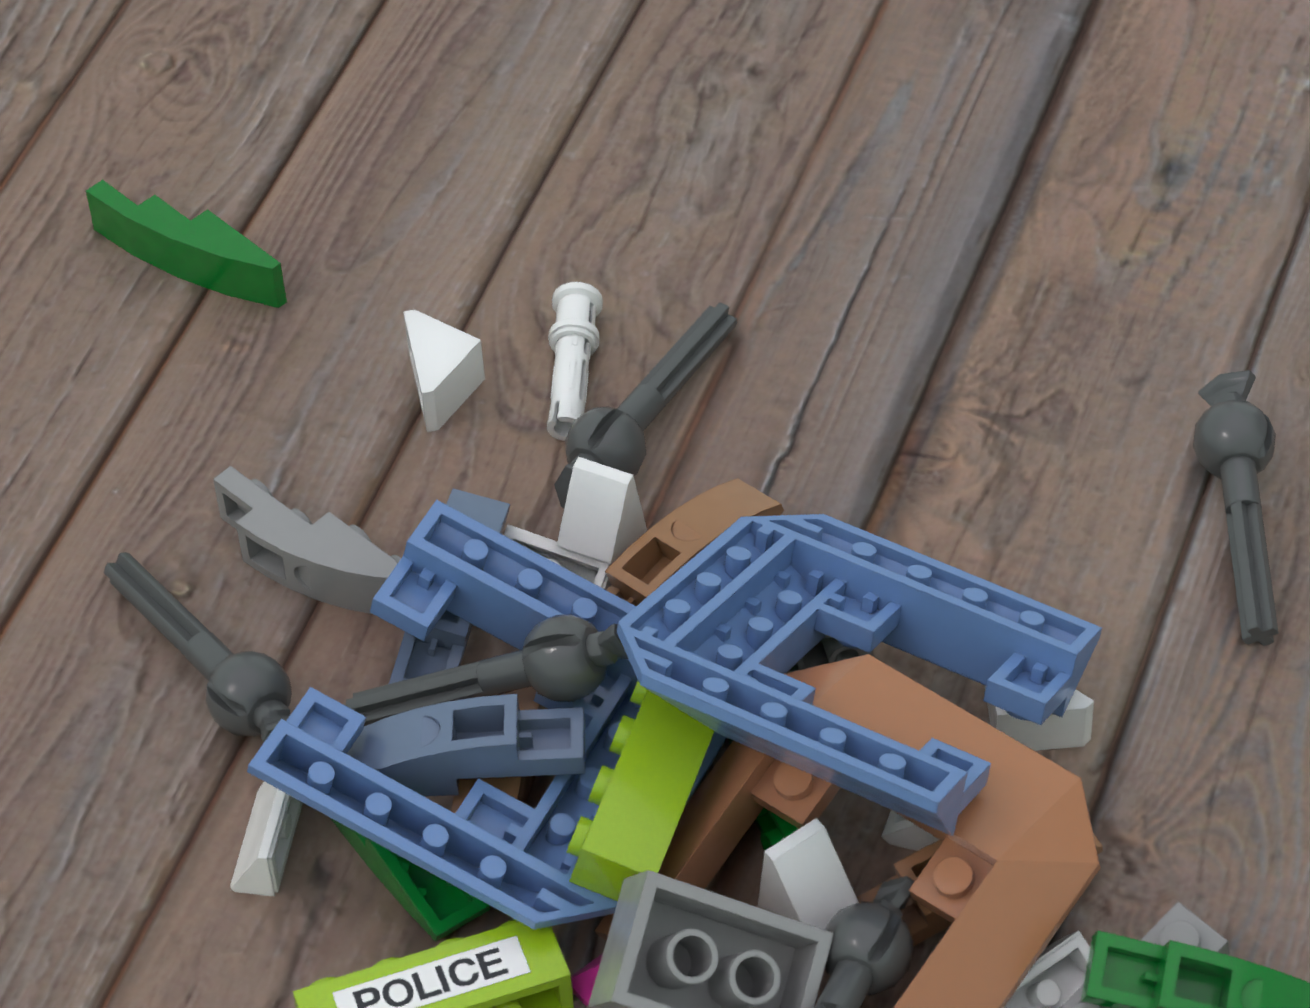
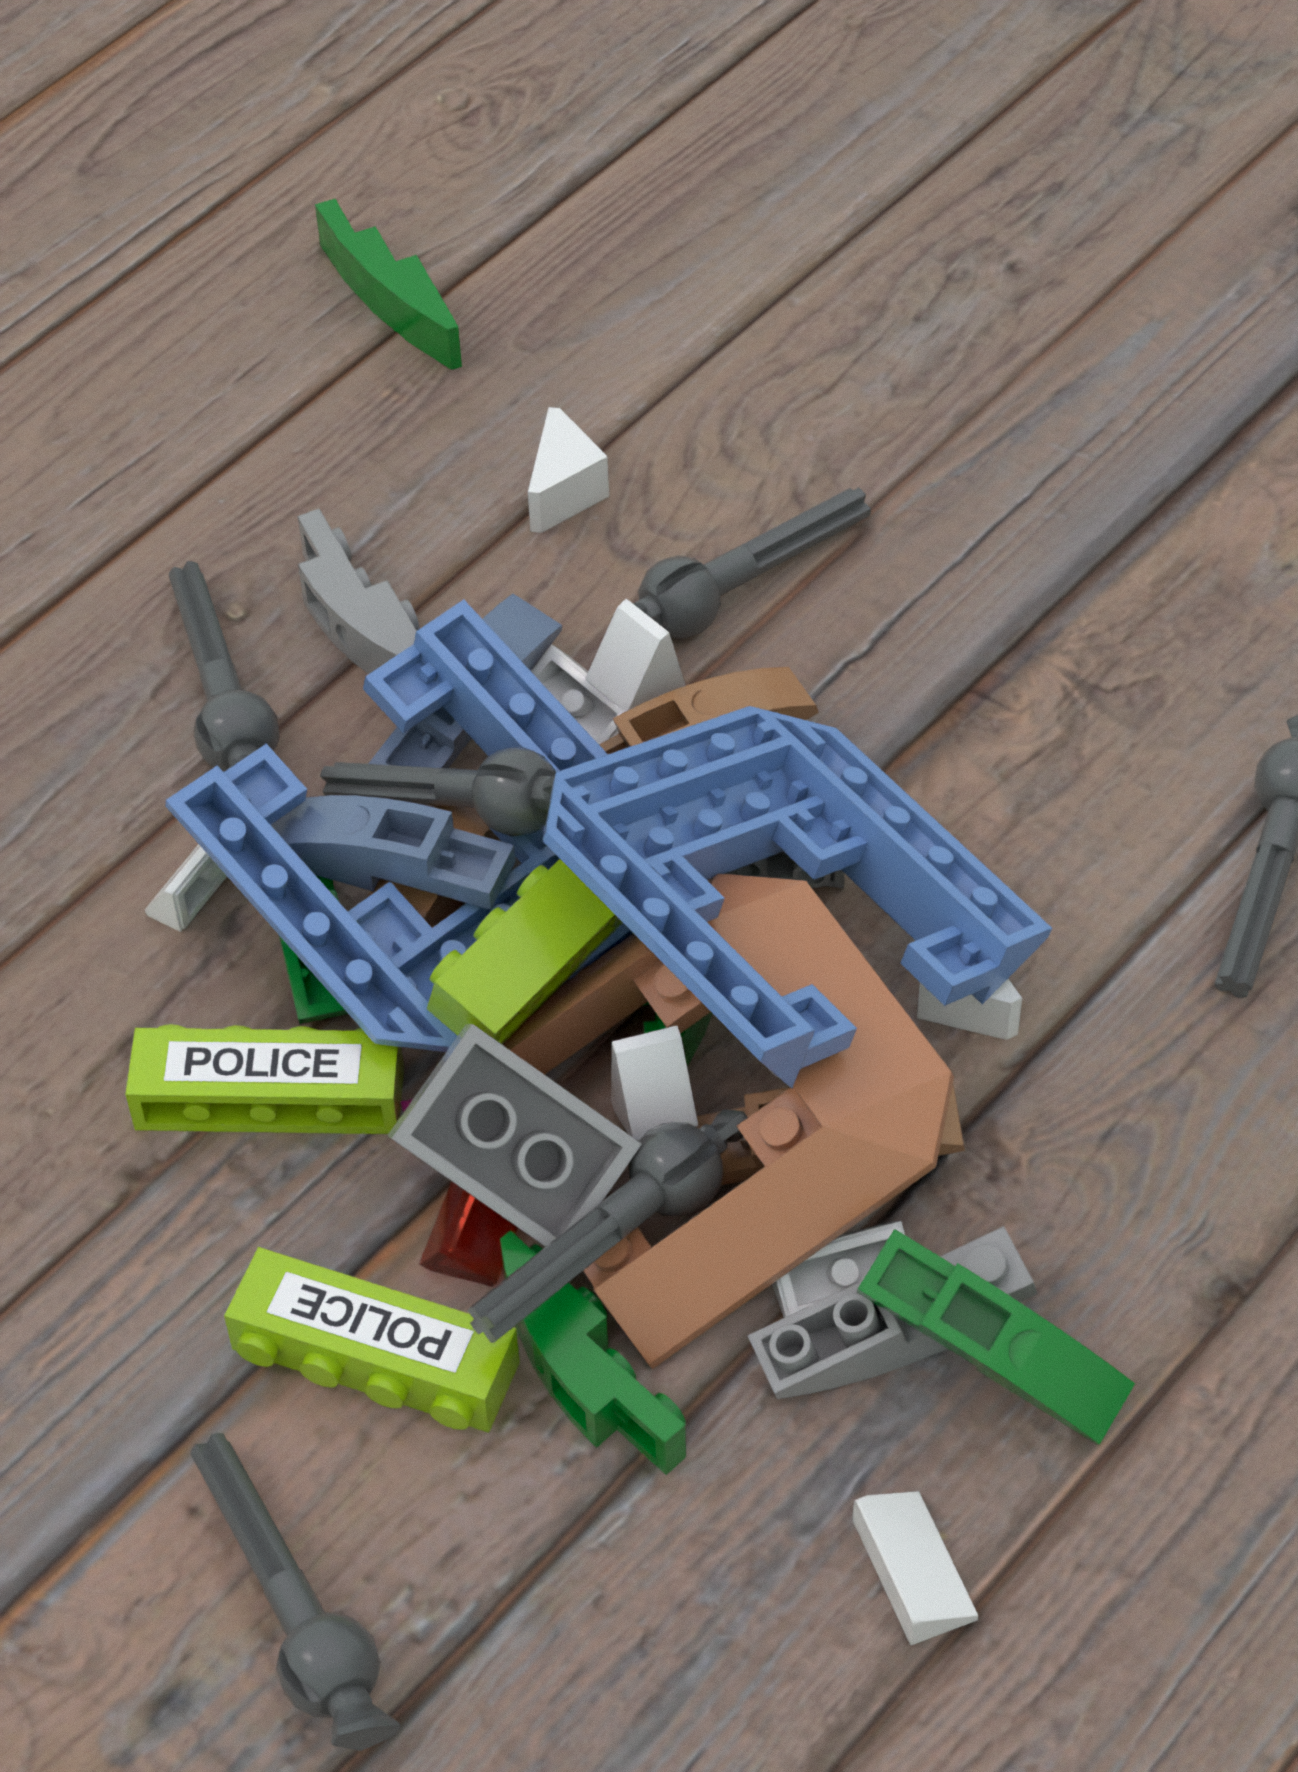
camera: 20 degrees right, 5 degrees up
(573, 342) = (703, 485): white pin -> none

